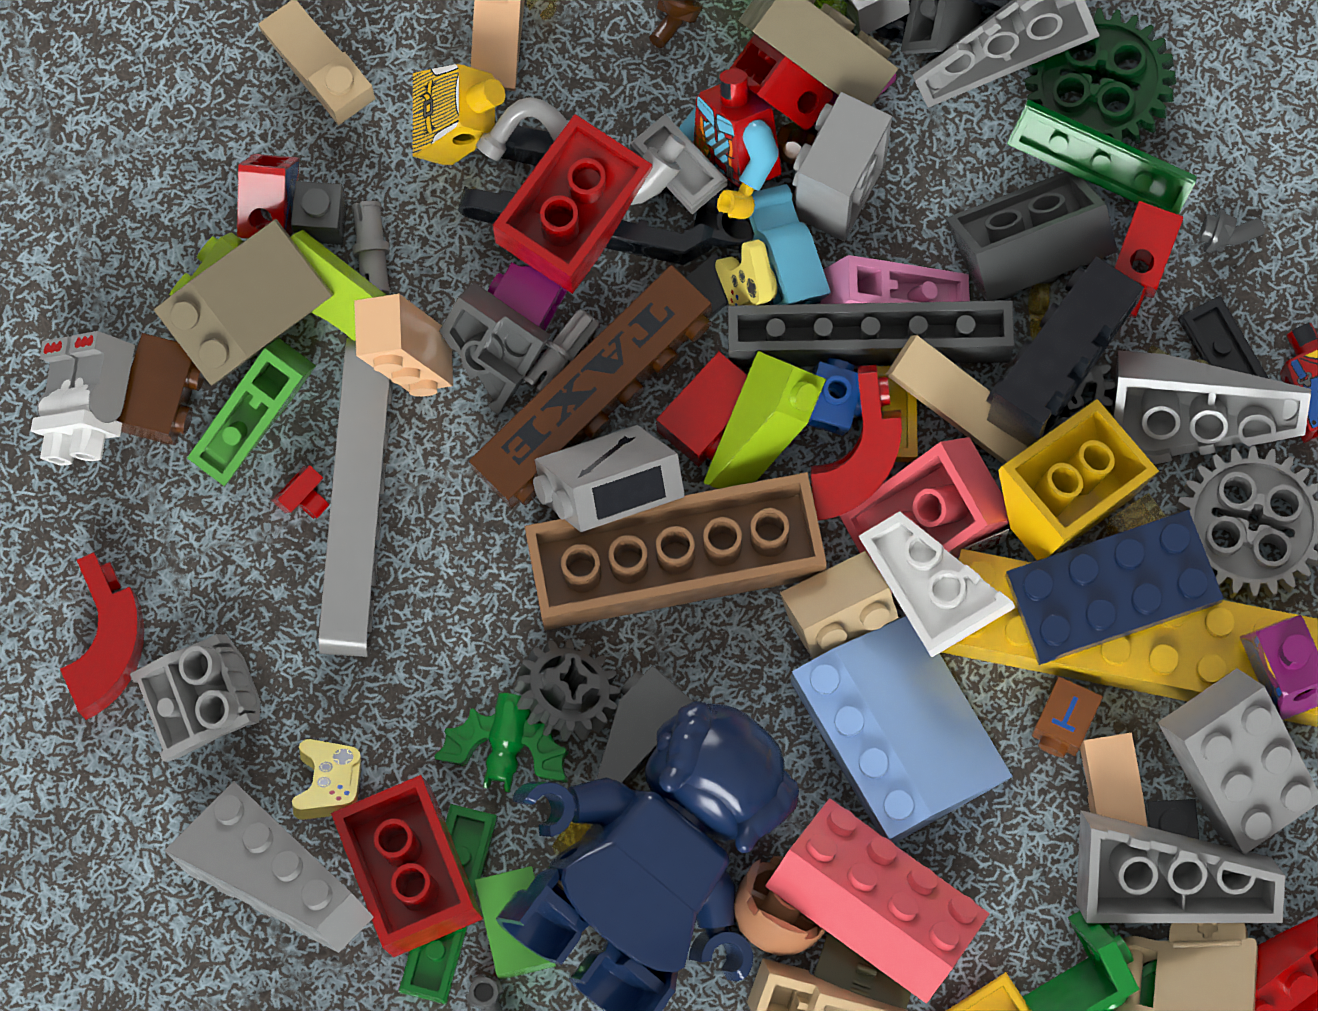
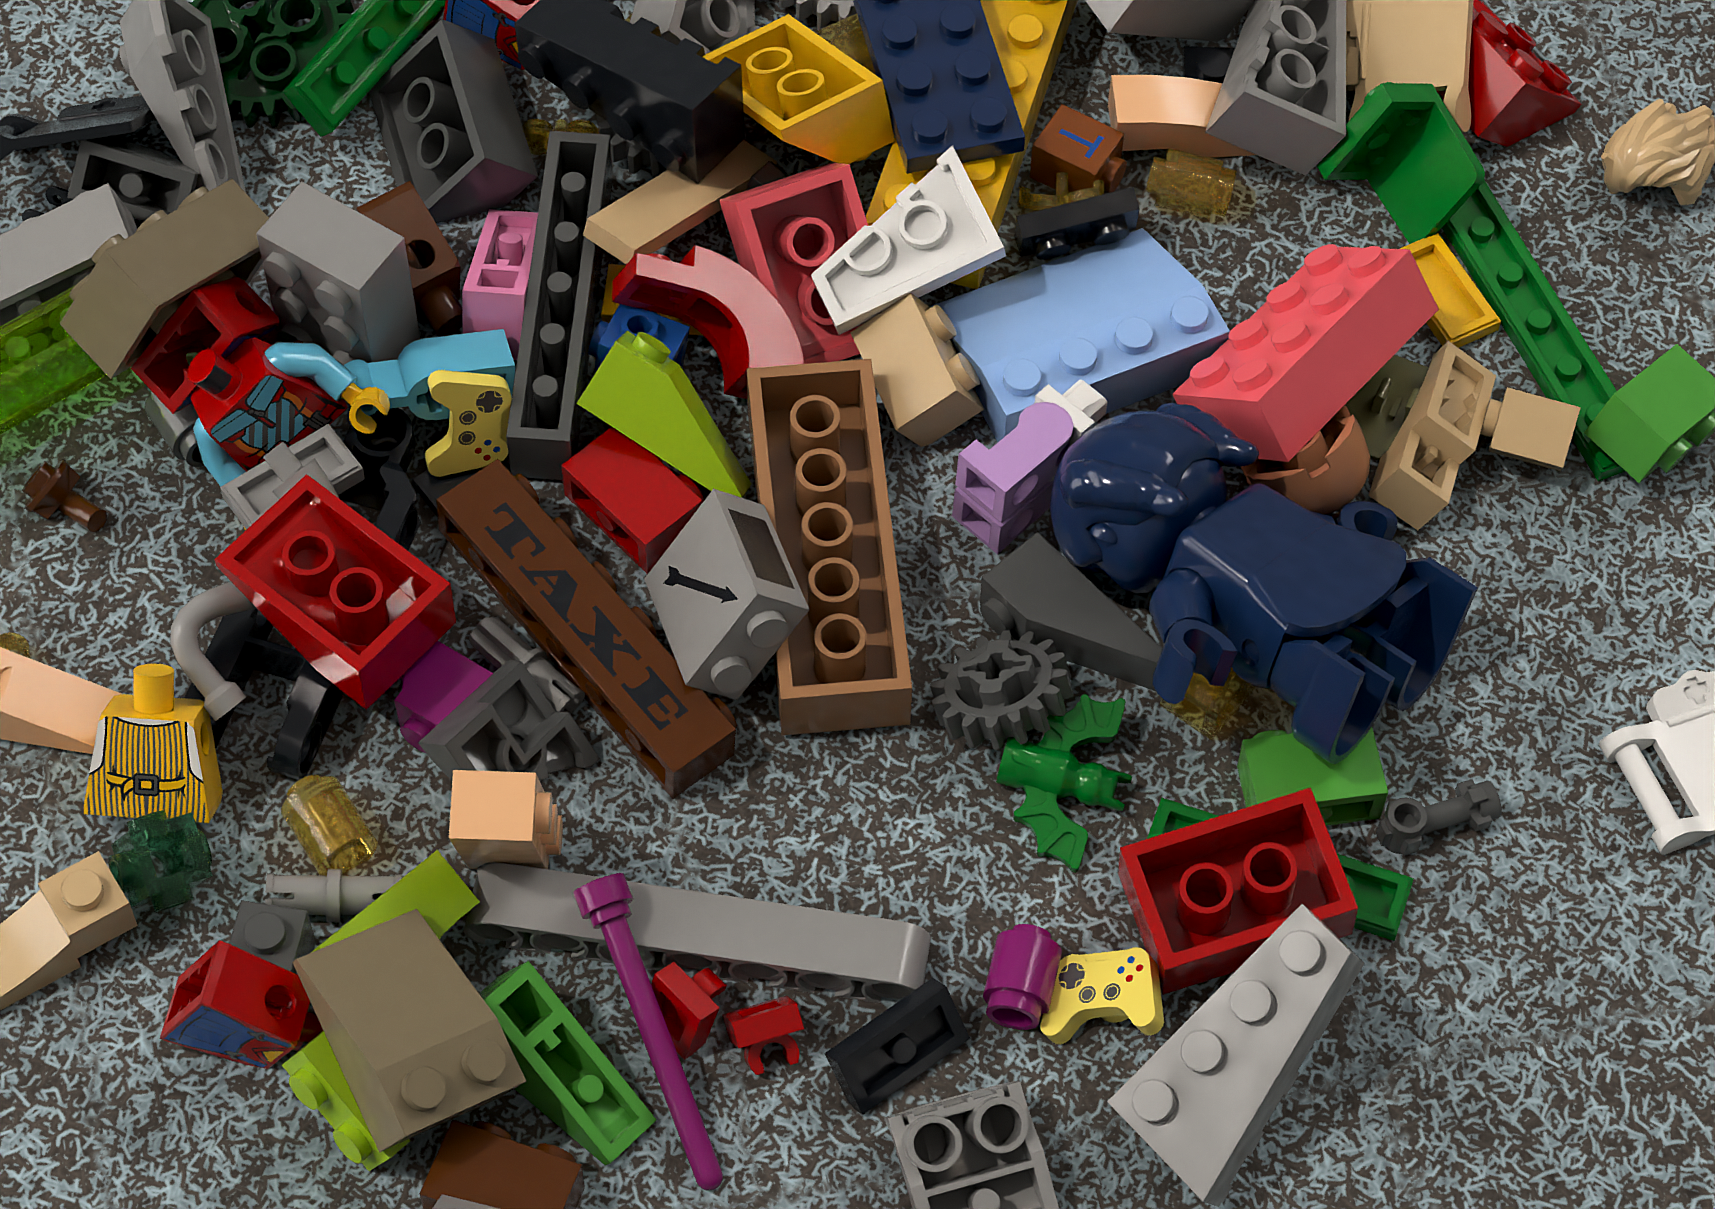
camera: 90 degrees left, 15 degrees down
(281, 639) = (897, 1046): none -> black plate
(291, 547) = (764, 1024): none -> red tile
(341, 722) = (1021, 976): none -> magenta brick
(354, 425) = (607, 907): none -> magenta piece
(364, 133) = (179, 848): none -> clear green brick
(422, 235) = (327, 824): none -> clear yellow brick
(757, 694) = (1012, 482): none -> lavender hips
(904, 206) = (430, 258): none -> reddish brown torso
(988, 702) = (1097, 218): none -> black plate
(1022, 701) = (1041, 201): none -> clear yellow piece
(1053, 810) = (1191, 184): none -> clear yellow brick

